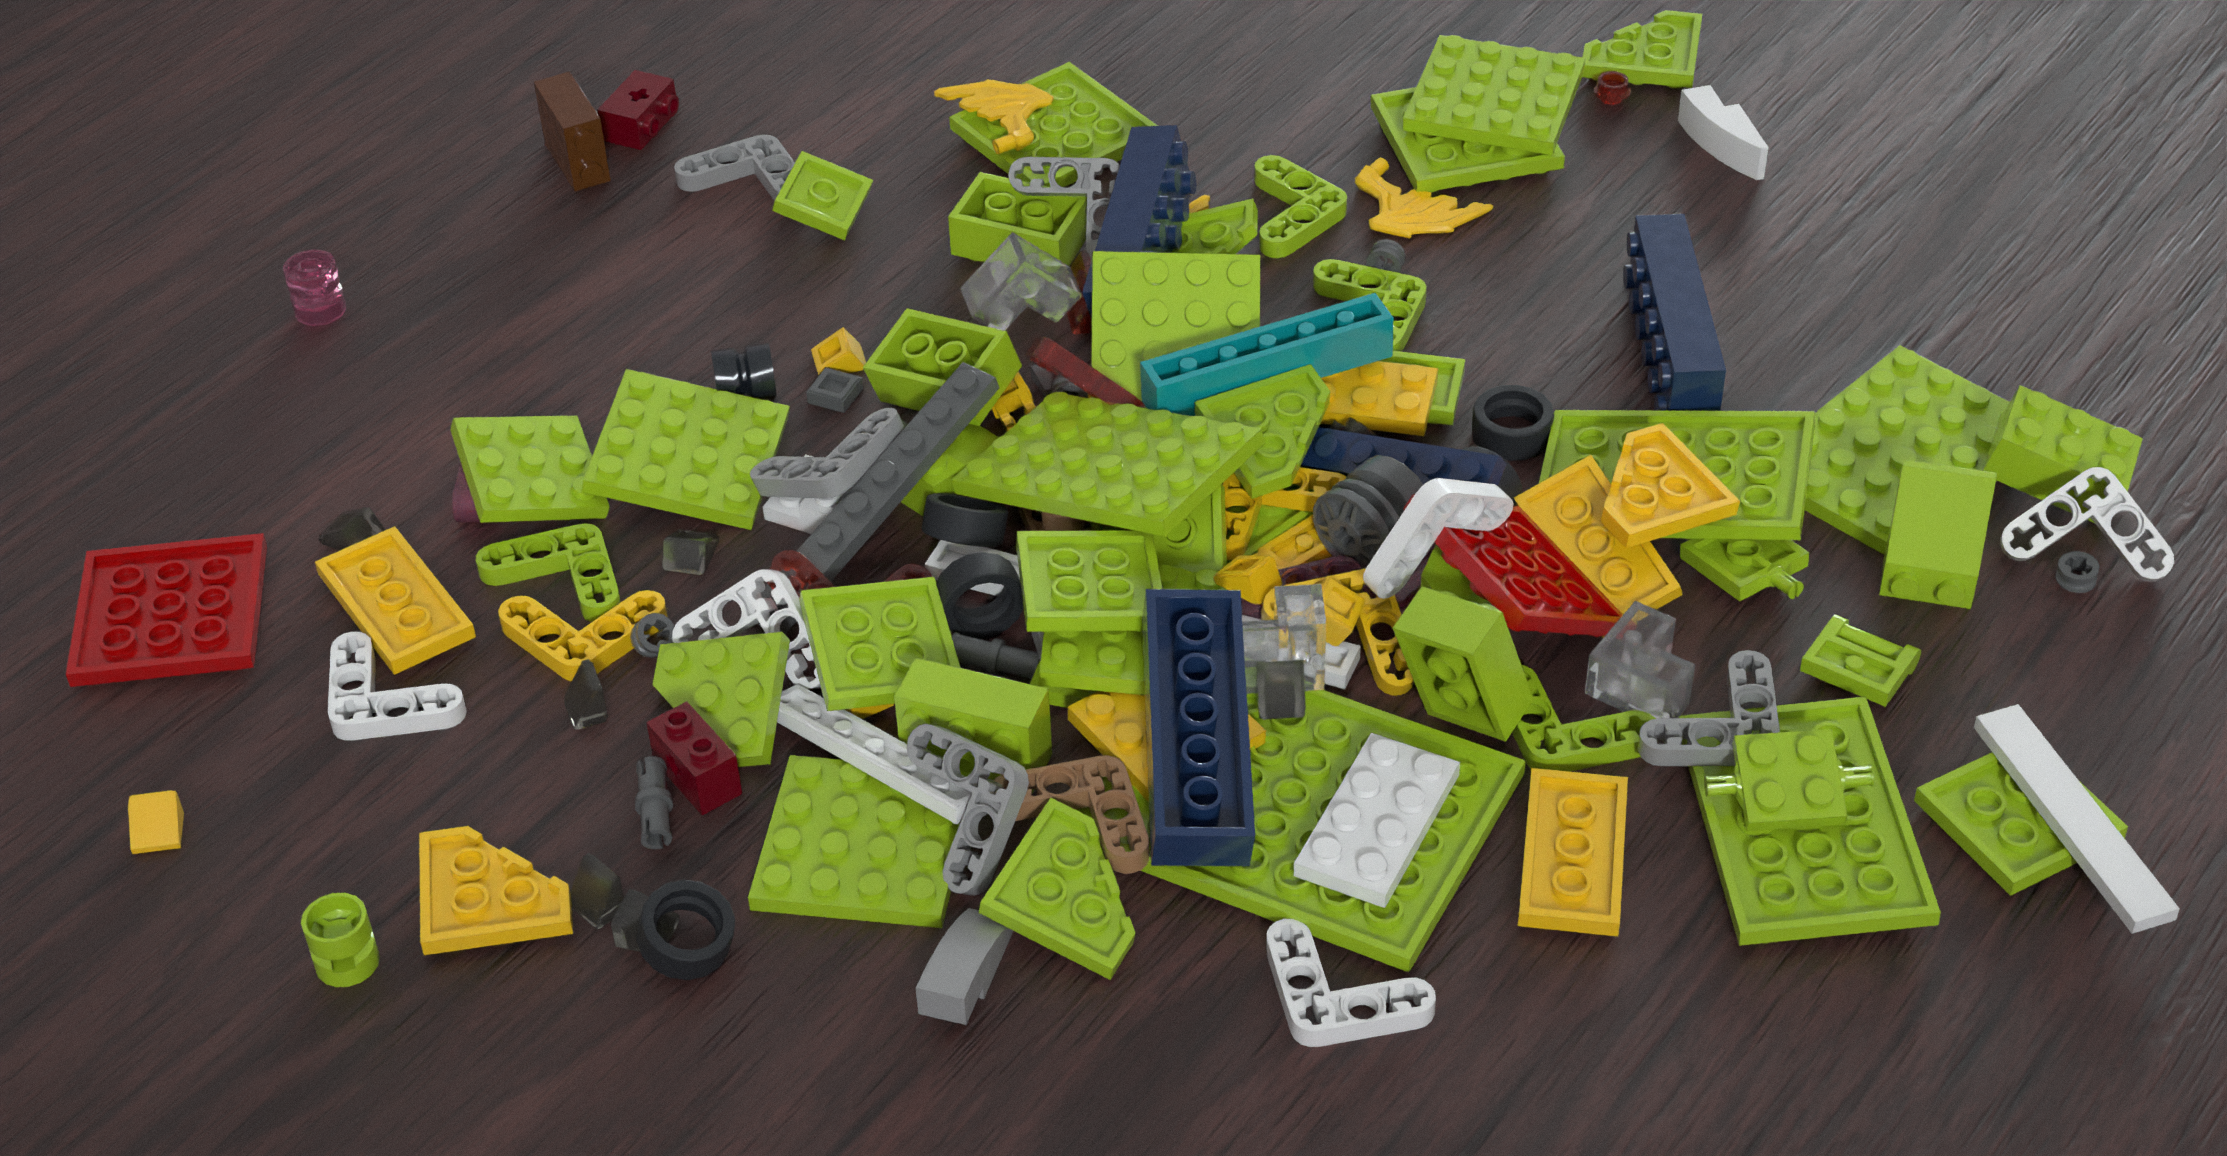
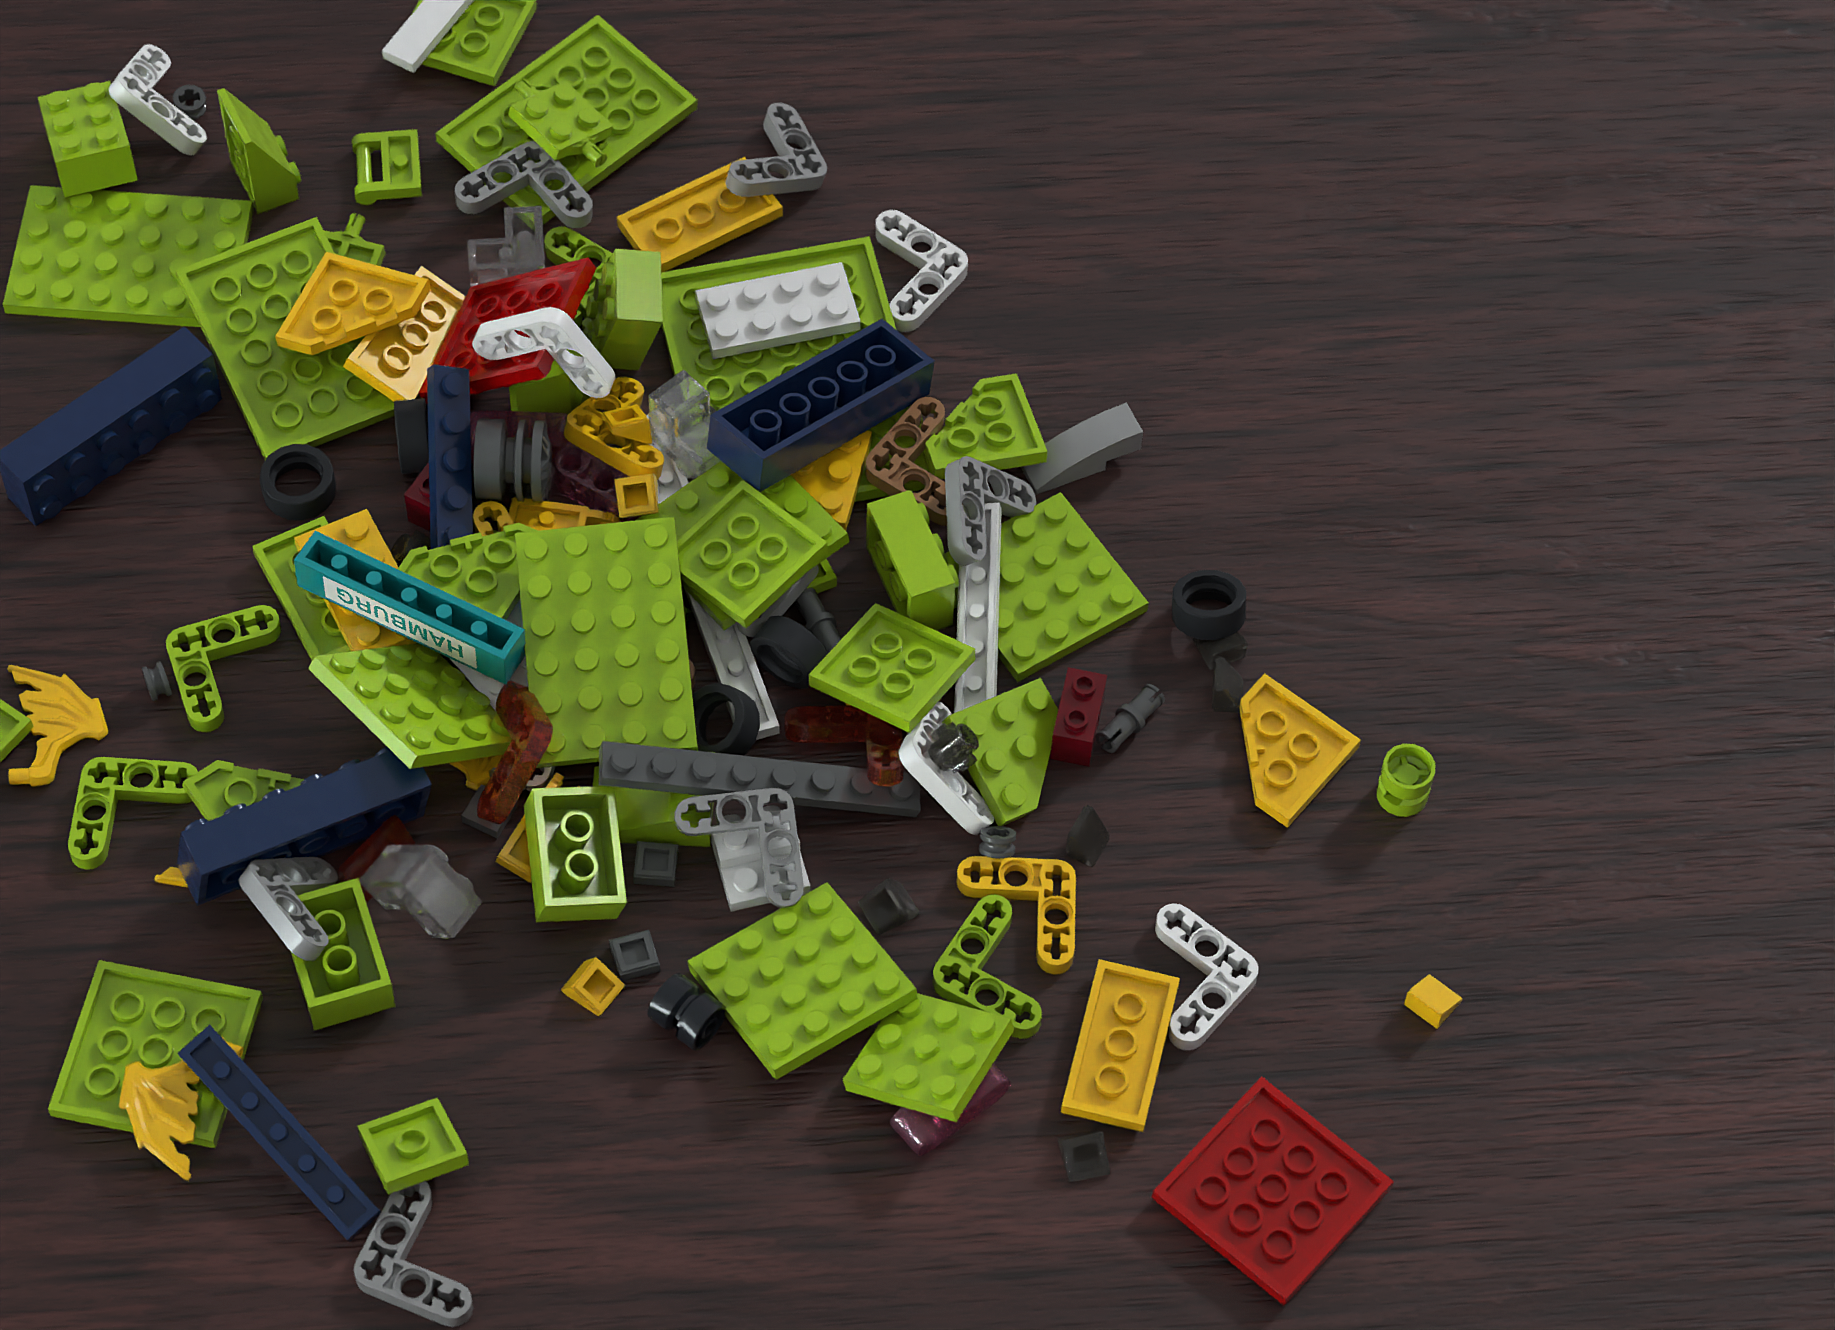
camera: 135 degrees left, 15 degrees up
(735, 601) = (953, 747): none -> clear smoke gear
(922, 133) = (279, 1133): none -> dark blue plate
(1569, 954) = (782, 126): none -> light grey beam

